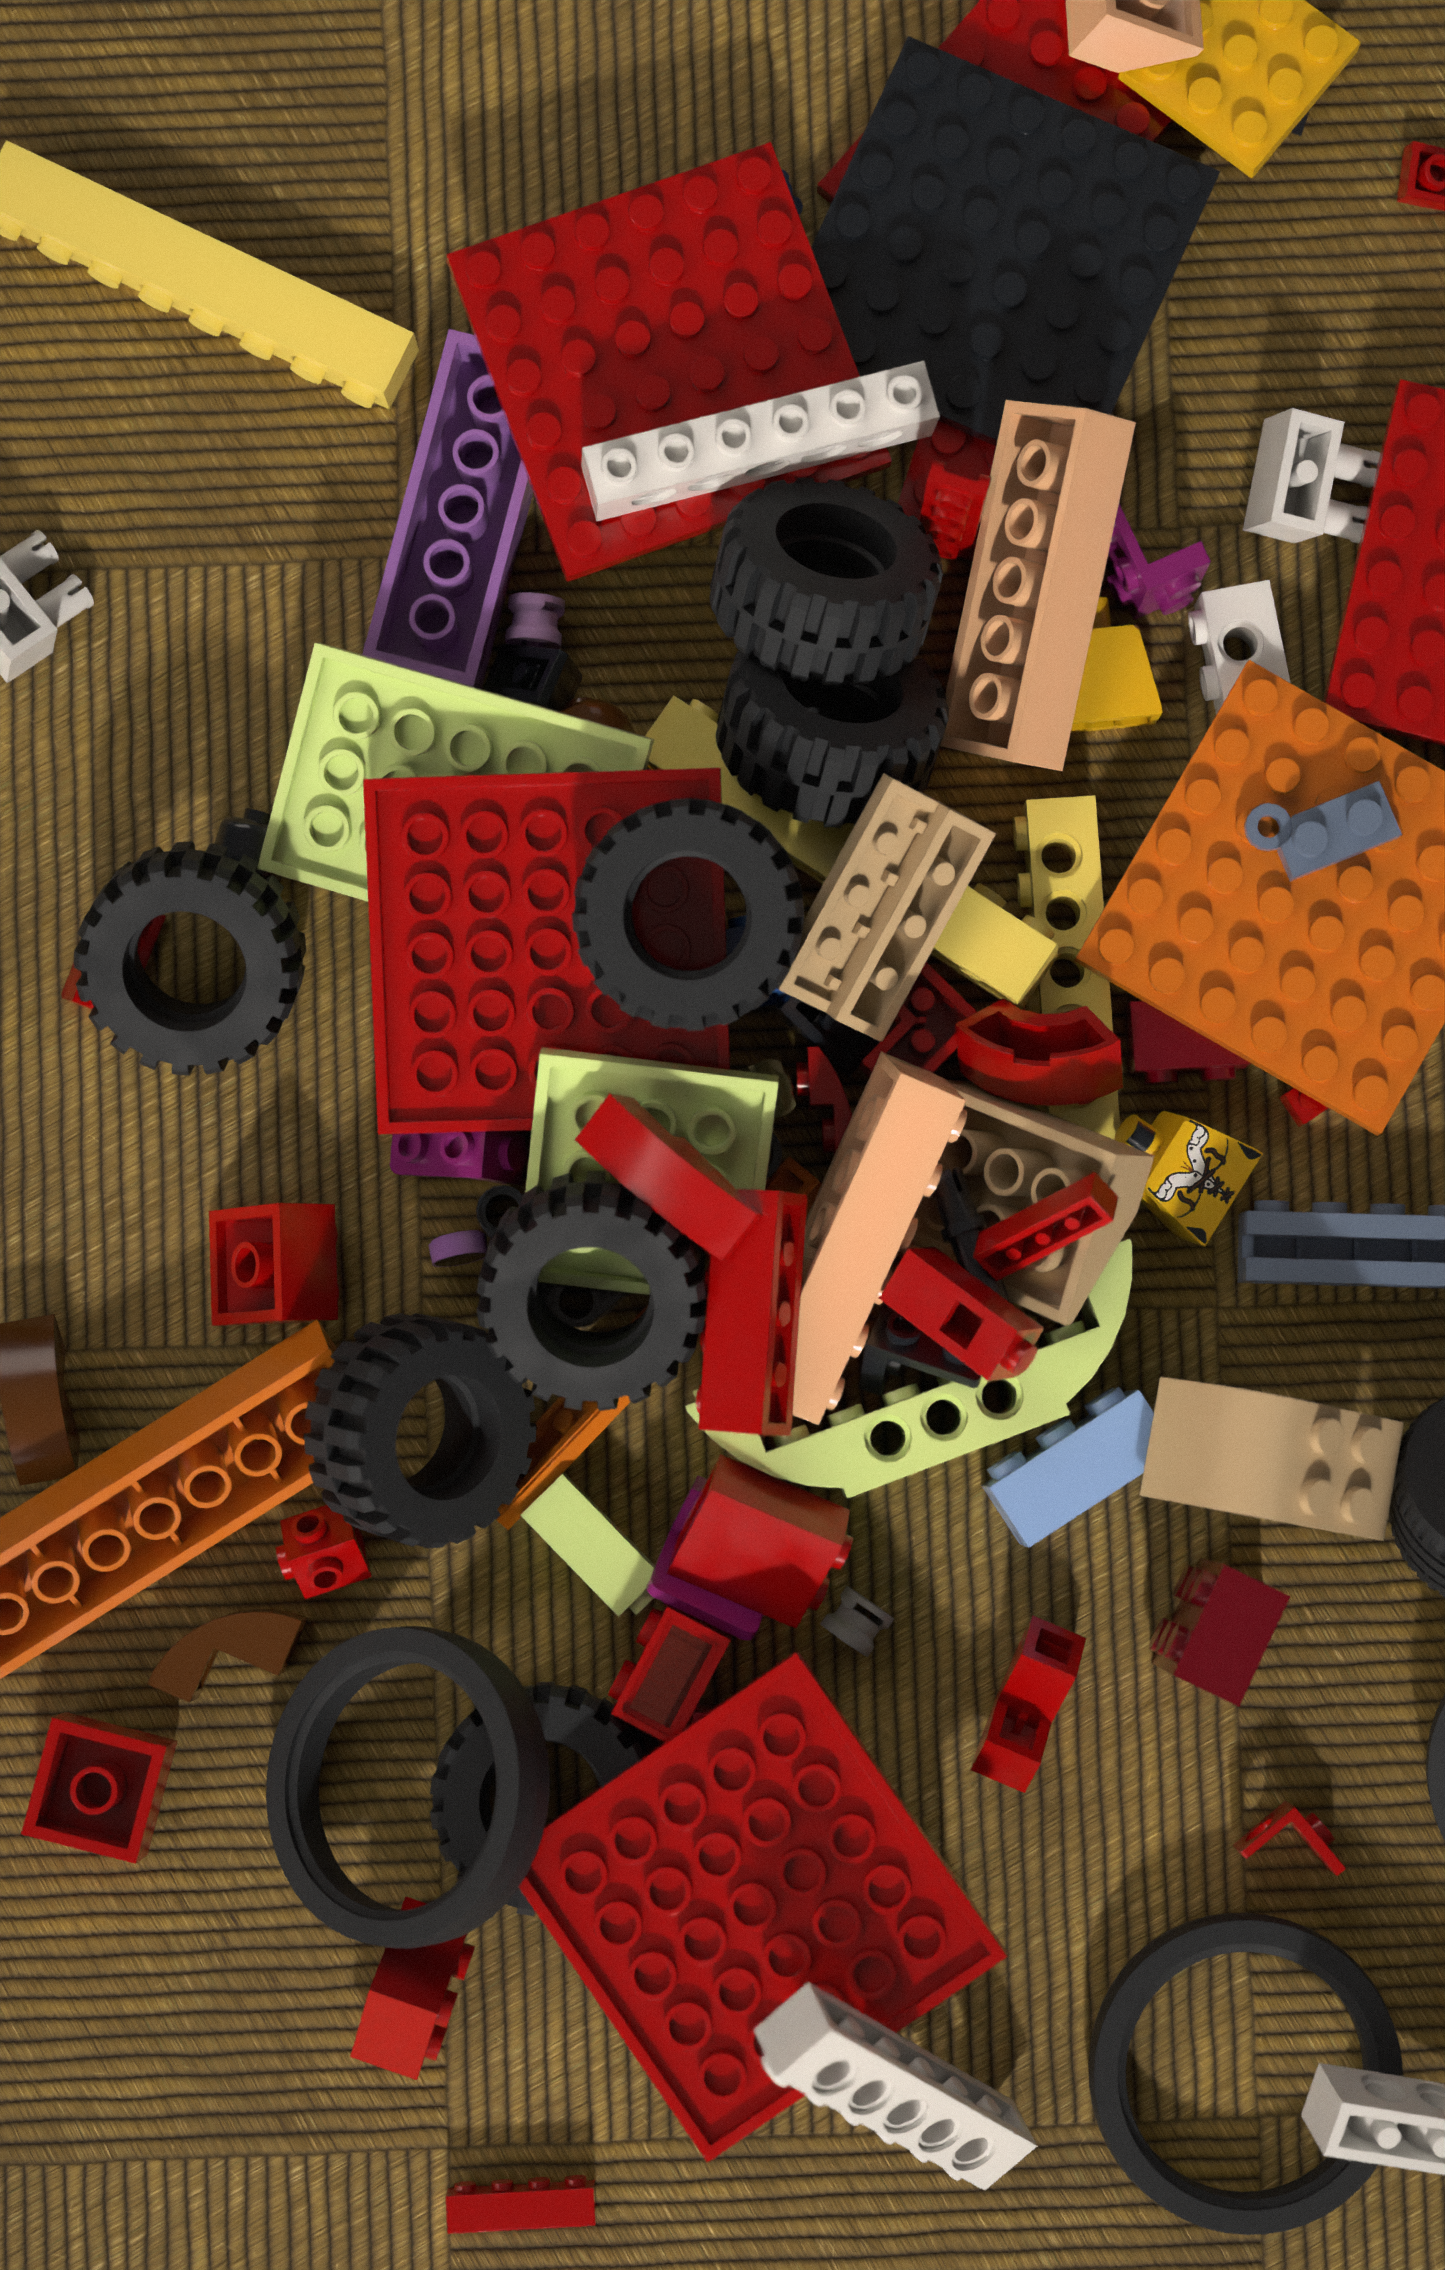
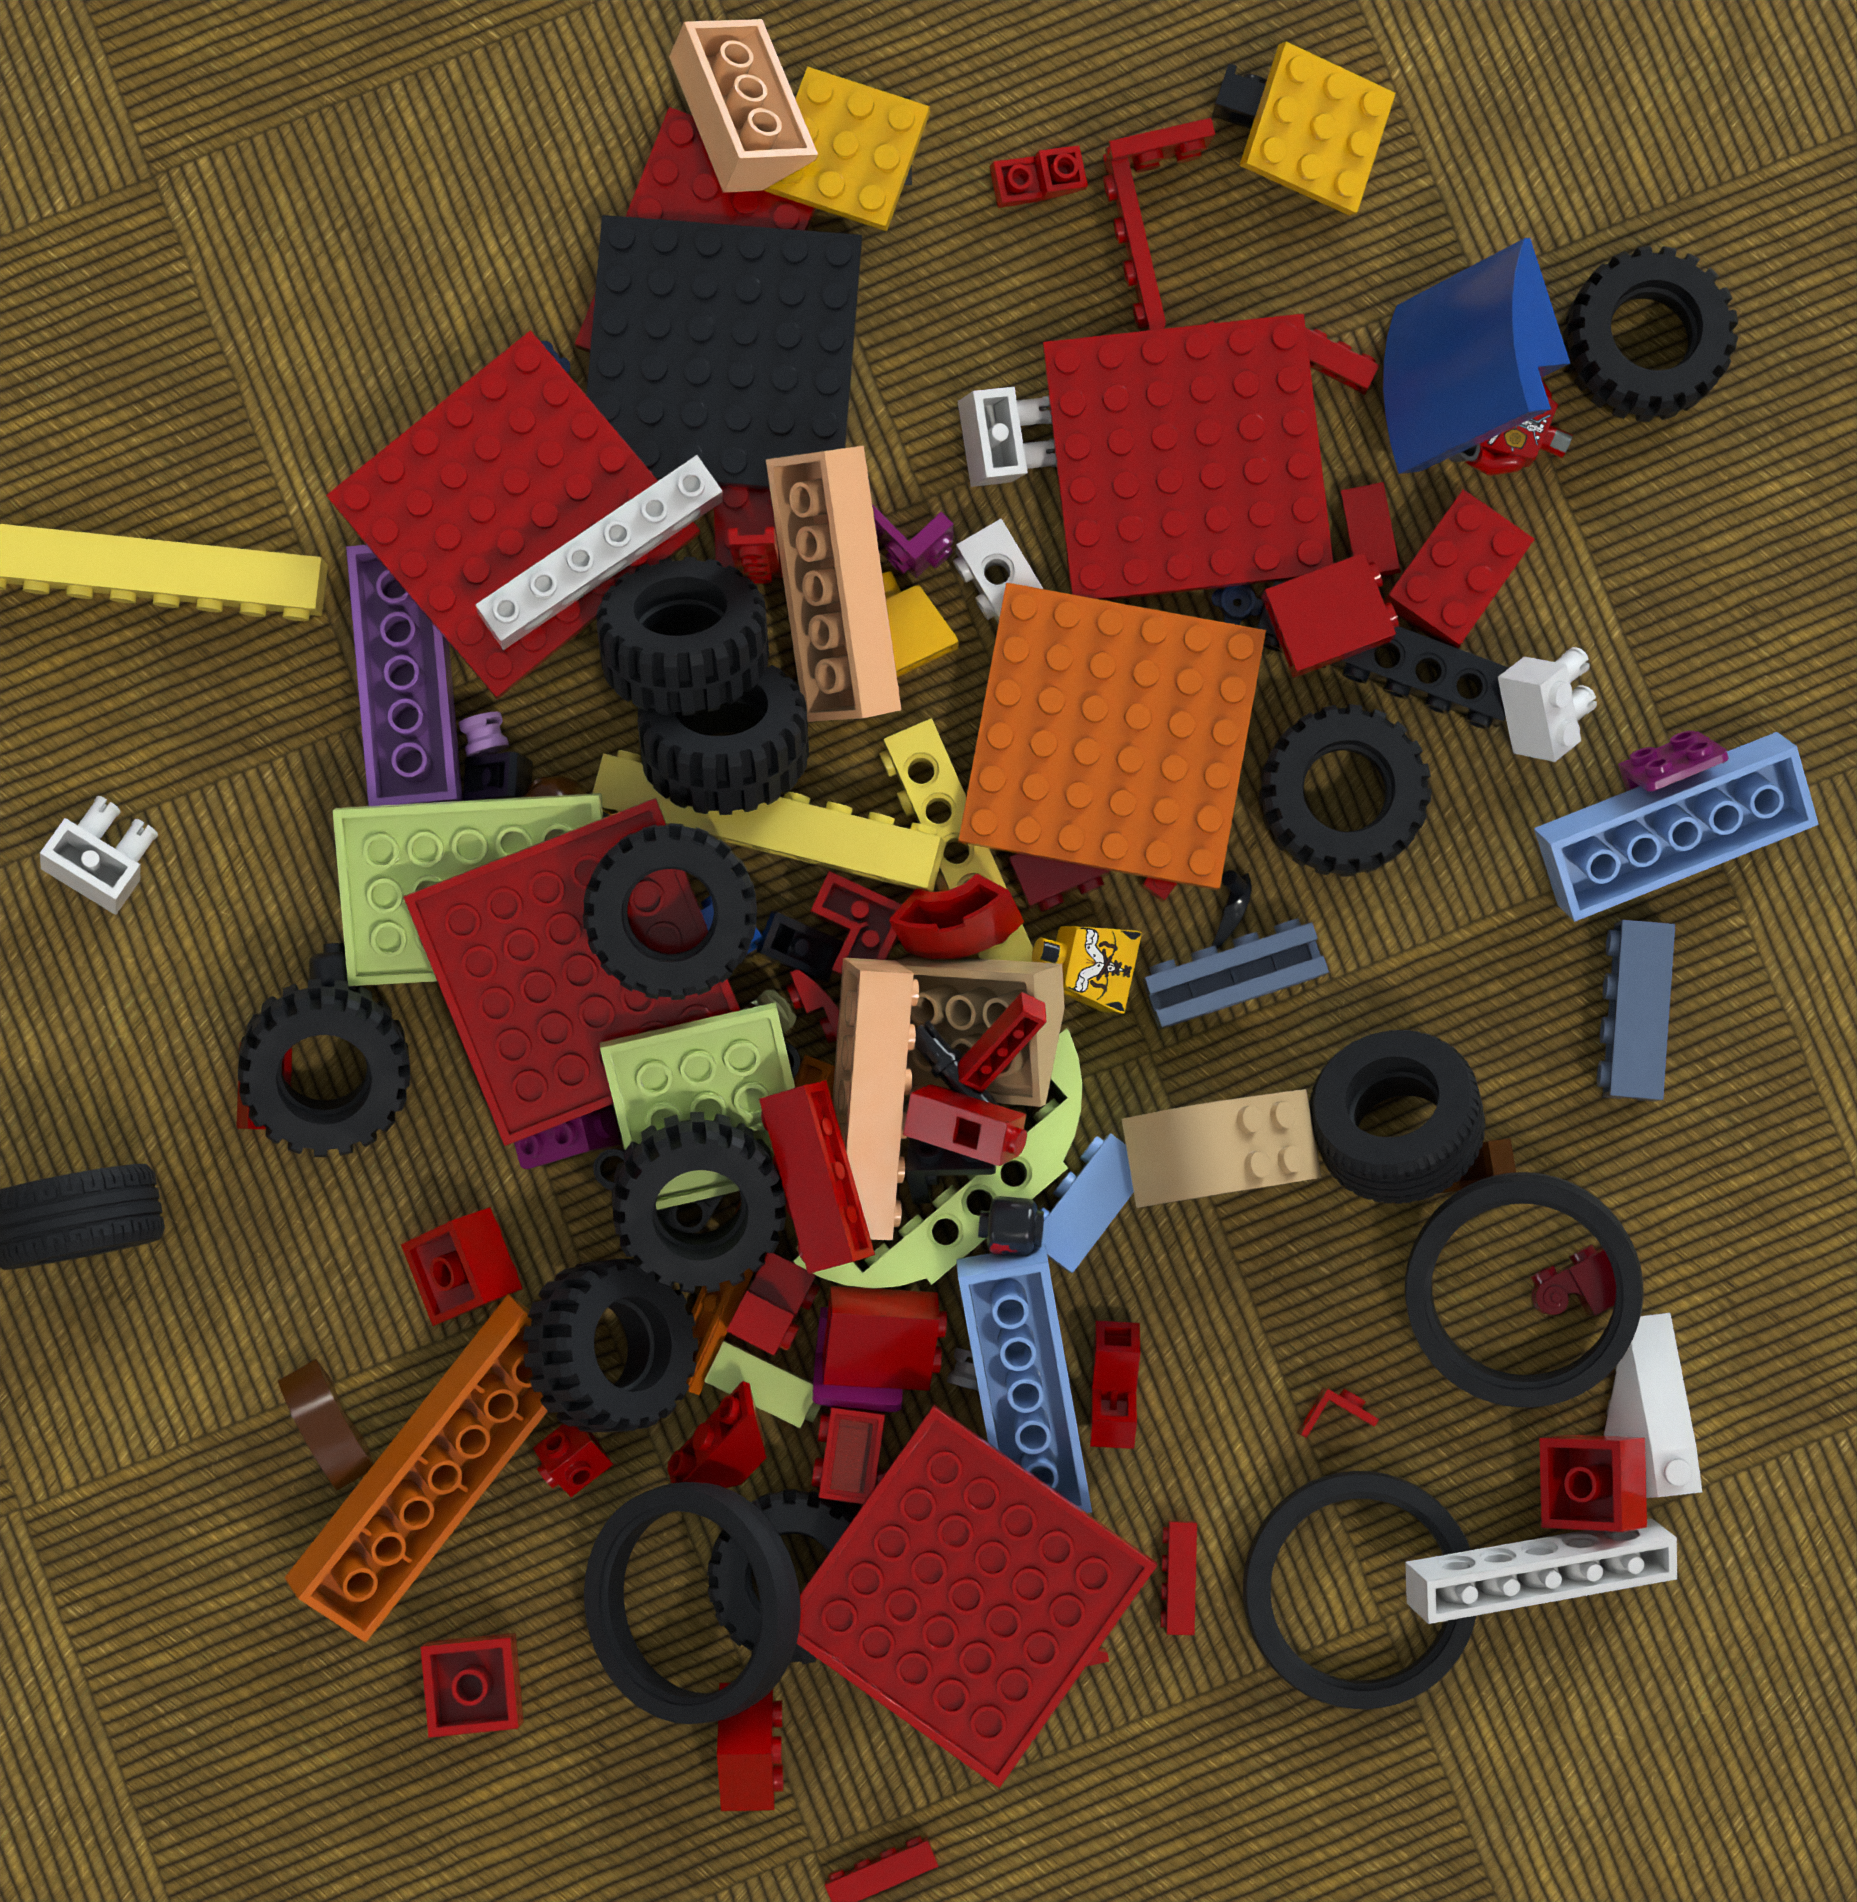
camera: 25 degrees left, 0 degrees up
(252, 1635) = (544, 1537): reddish brown brick -> none
(458, 1248) = (590, 1206): medium lavender tile -> none
(515, 1605) = (724, 1446): none -> red slope
(639, 1450) = (773, 1303): none -> red brick
(668, 1175) = (722, 1102): red slope -> none
(884, 906) = (808, 854): tan brick -> none
(893, 2087) = (1111, 1687): white brick -> none
(926, 1641) = (1023, 1367): none -> light blue brick
(975, 1462) = (1012, 1226): none -> black head
(1024, 1974) = (1180, 1577): none -> red piece
(1218, 1629) = (1227, 1282): dark red brick -> none
(1326, 831) = (1104, 687): sand blue hinge -> none
(1388, 1162) = (1235, 906): none -> black bar

